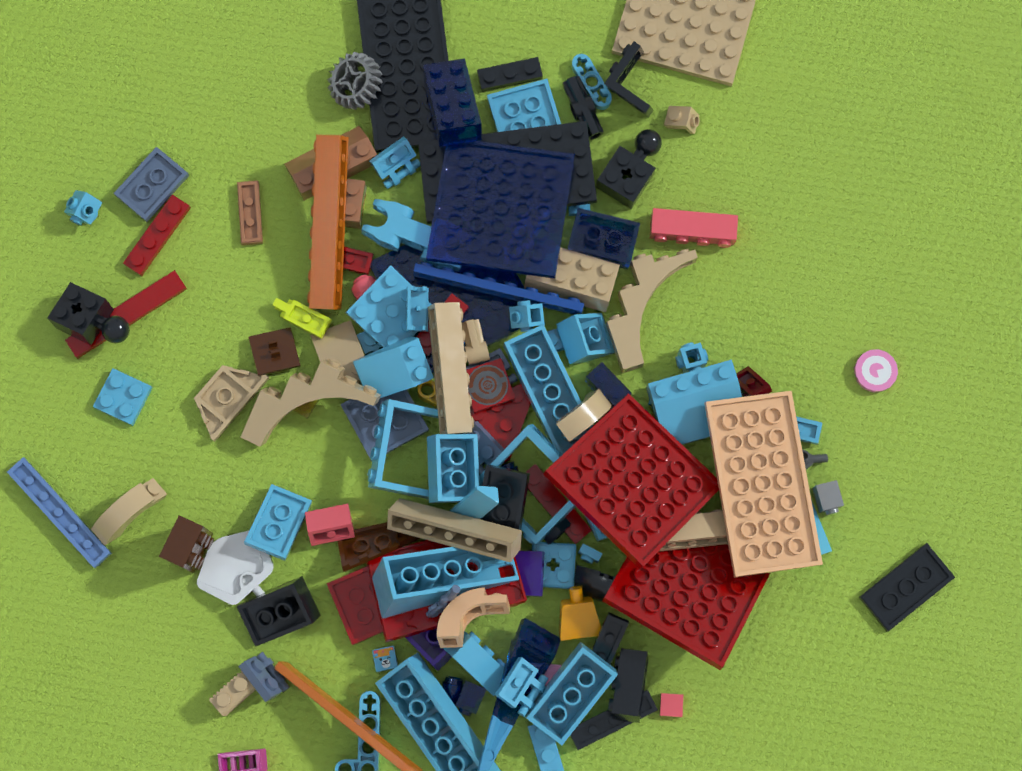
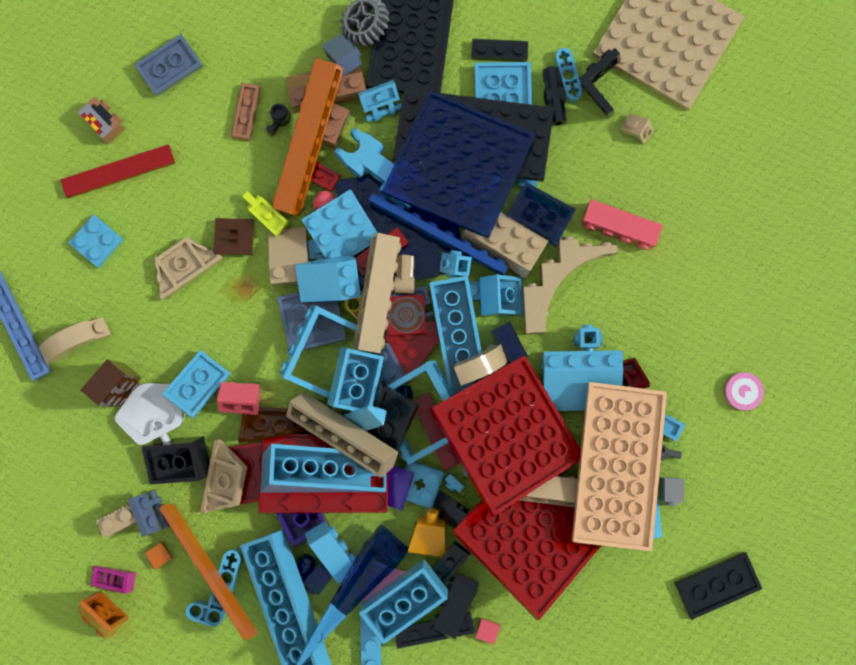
camera: 15 degrees right, 5 degrees up
(82, 208) = (104, 70): medium azure brick -> none
(85, 315) = (82, 165): black brick -> none
(93, 263) = (99, 118): none -> brick
(156, 235) = (162, 110): red plate -> none
(286, 722) = (159, 555): none -> orange tile
(289, 209) = (280, 118): none -> black piece
(327, 383) = (243, 276): tan arch -> none
(337, 617) = (224, 479): none -> tan wing
(340, 121) = (342, 53): none -> sand blue brick
(385, 658) = (256, 524): medium azure tile -> none
(417, 309) = (362, 233): medium azure hinge -> none
(439, 606) = (310, 497): sand blue animal -> none
(452, 102) = (442, 60): clear blue brick -> none
(465, 609) = (328, 507): light nougat arch -> none
(516, 684) = (359, 581): medium azure plate -> none
(557, 531) = (431, 457): black tile -> none
(632, 165) = (584, 157): black brick -> none

